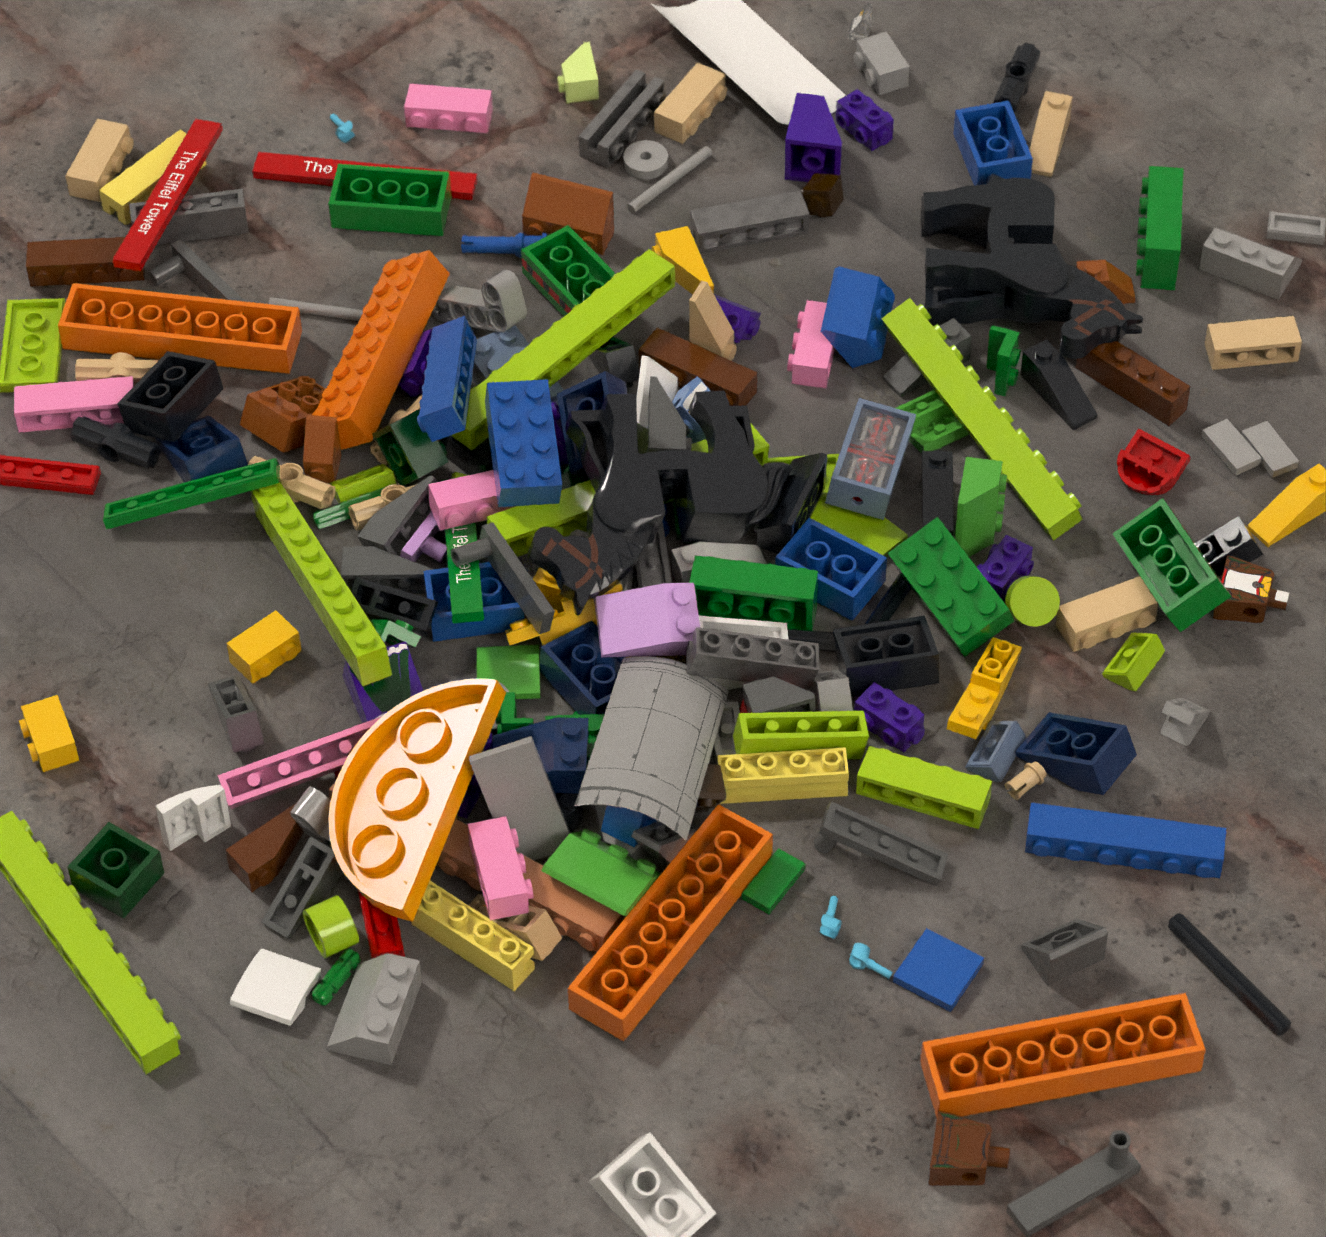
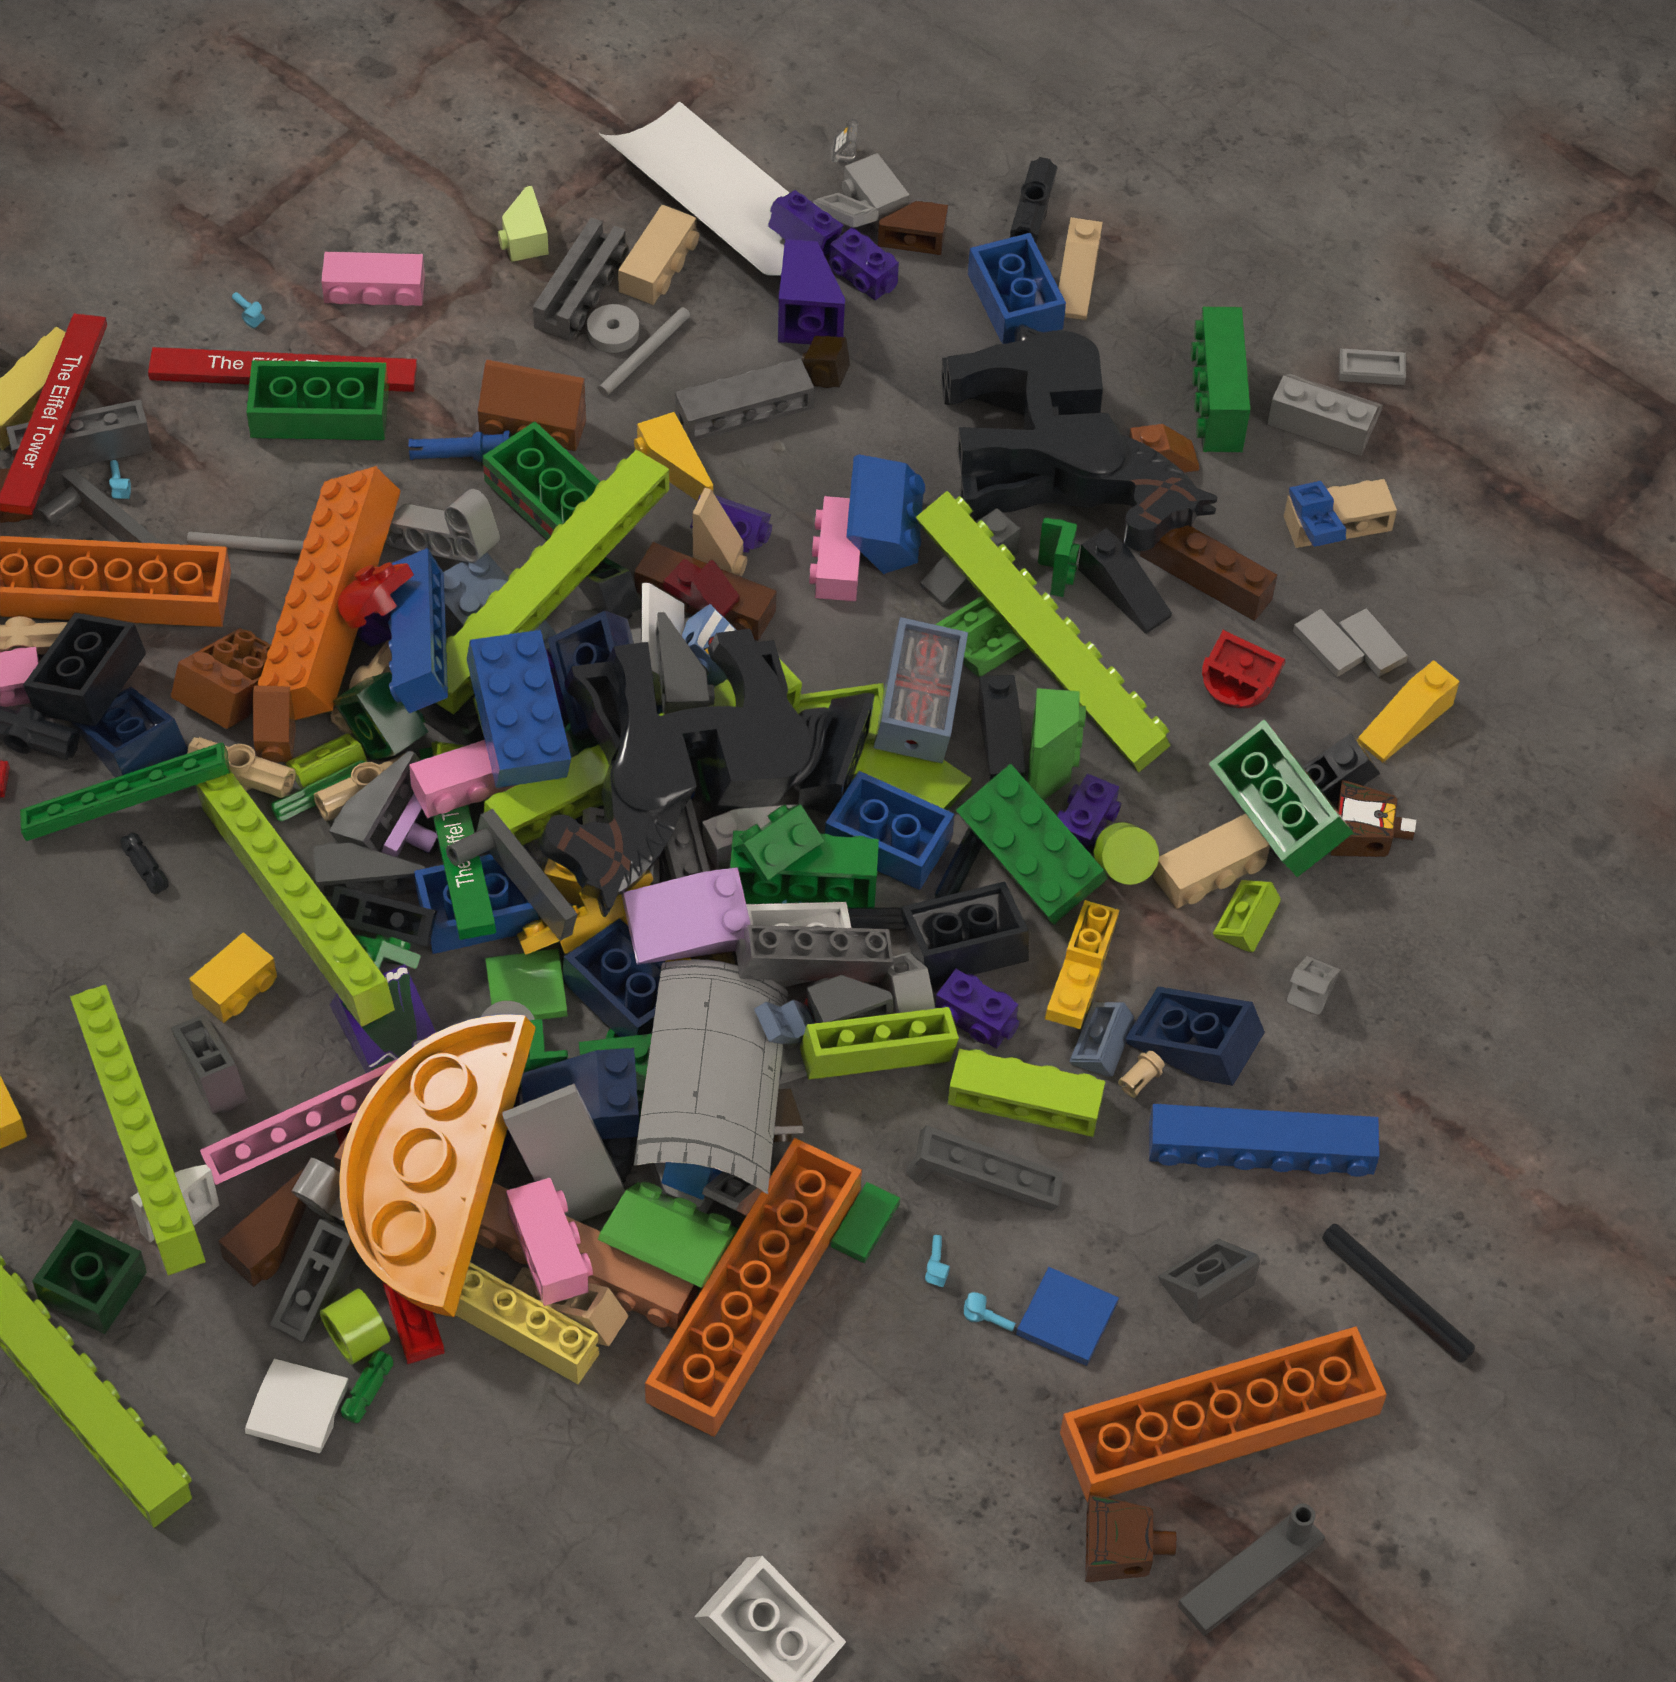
camera: 10 degrees left, 5 degrees up
(167, 754) = (138, 1131): none -> lime brick
(202, 553) = (144, 863): none -> black axle
(219, 259) = (120, 487): none -> medium azure hand
(377, 1008) = (419, 1423): light grey slope -> none
(413, 346) = (372, 592): none -> red slope
(694, 362) = (702, 586): none -> dark red slope
(720, 713) = (784, 1023): none -> sand blue slope
(733, 565) = (780, 841): none -> green bracket
(784, 775) = (865, 1090): light yellow brick -> none
(813, 78) = (800, 219): none -> dark purple brick
(854, 76) = (847, 210): none -> light grey tile
(912, 94) = (915, 228): none -> reddish brown slope
(1230, 339) = (1316, 513): none -> blue slope

